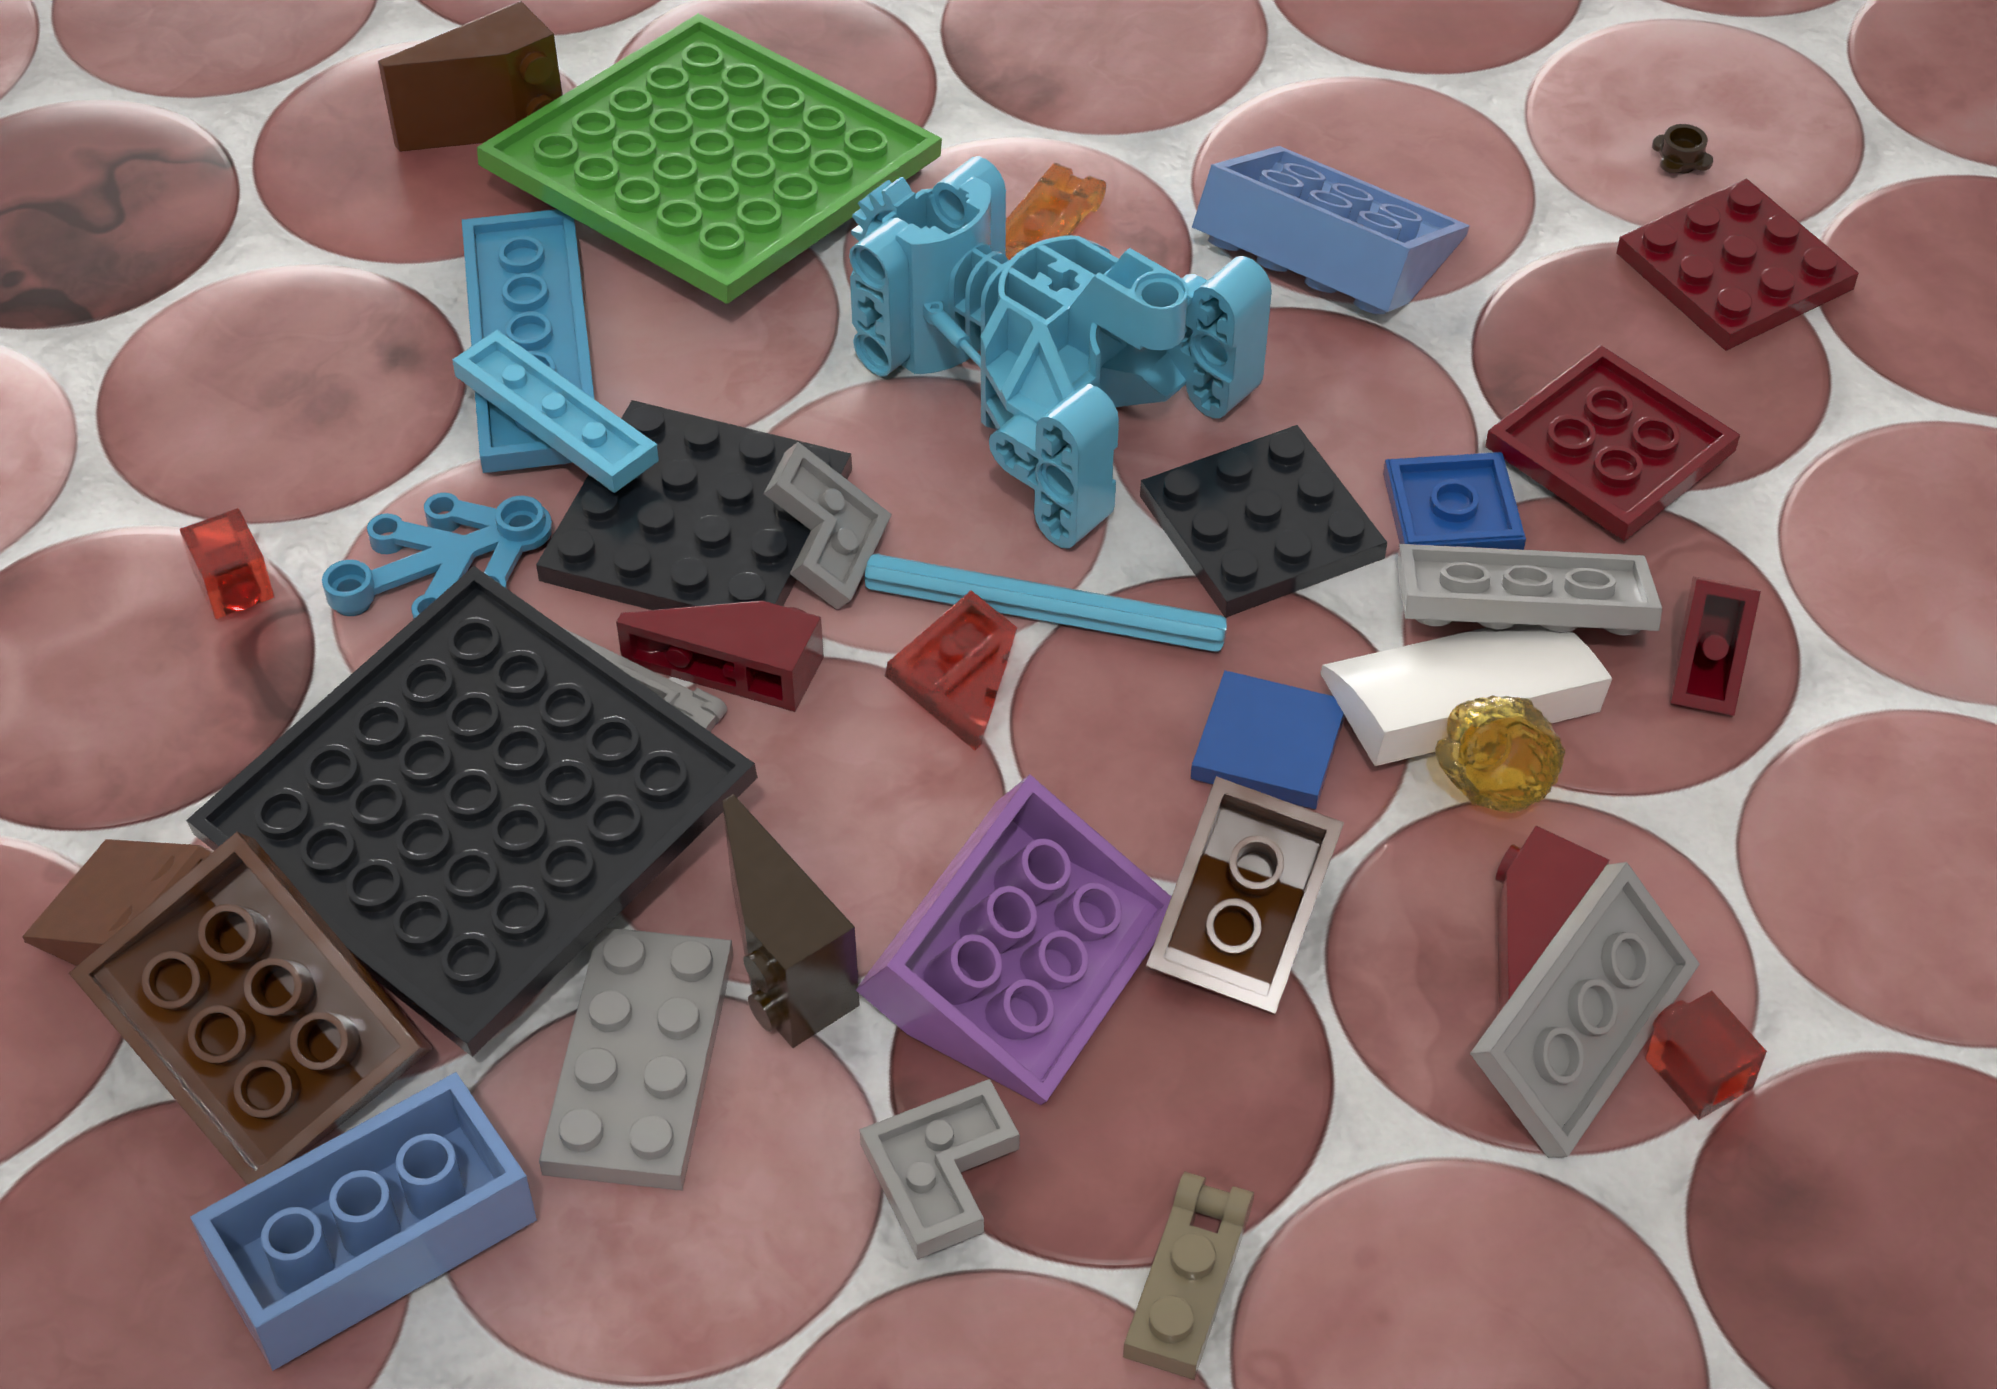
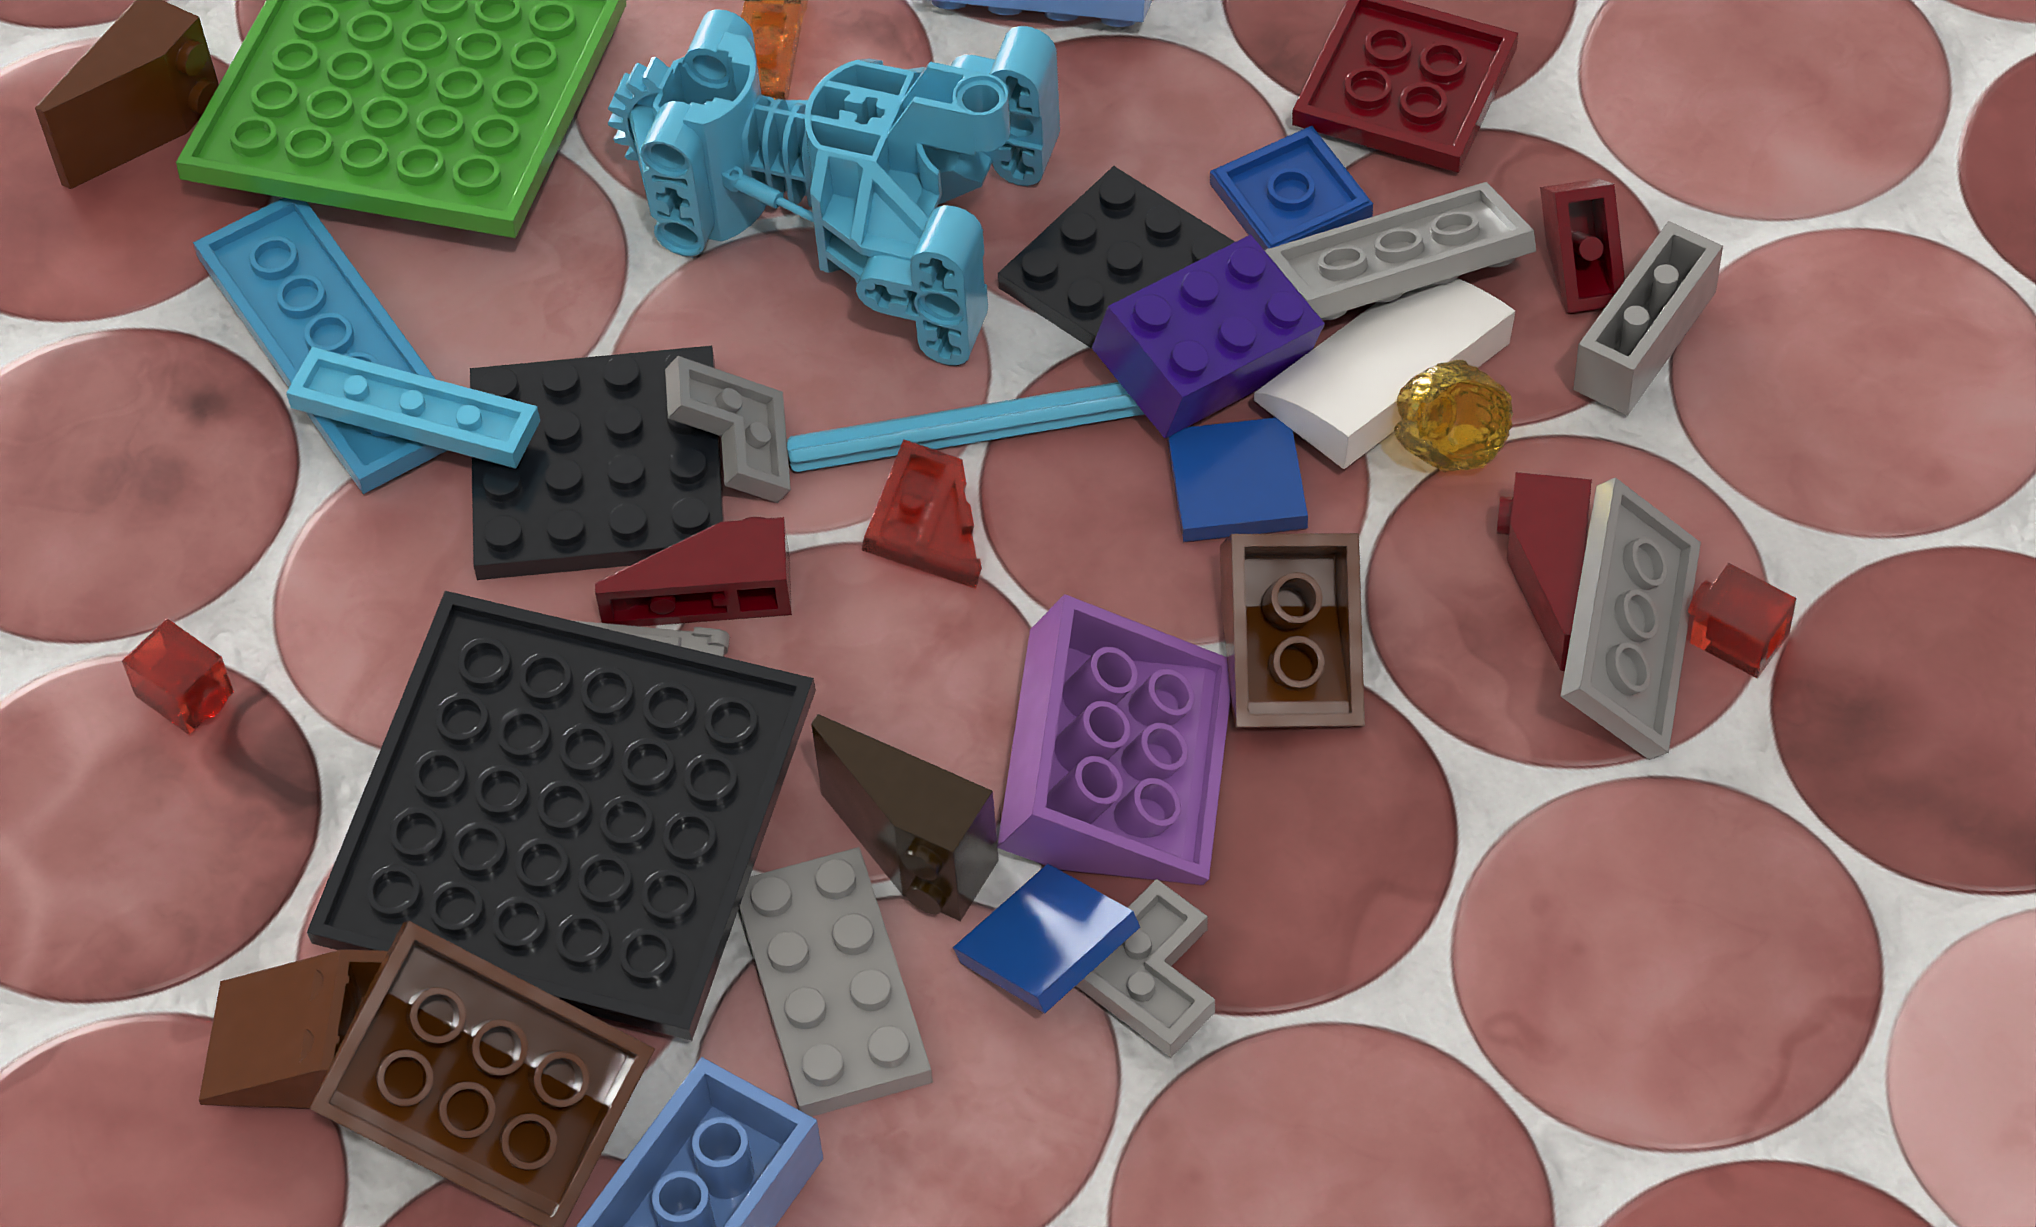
camera: 20 degrees left, 5 degrees up
(510, 529) = (373, 586): dark azure plant -> none
(854, 1094) = (1046, 937): none -> blue tile
(1188, 1278) = (1405, 980): dark tan plate -> none
(1297, 595) = (1206, 335): none -> dark purple brick
(1742, 730) = (1647, 318): none -> light grey brick

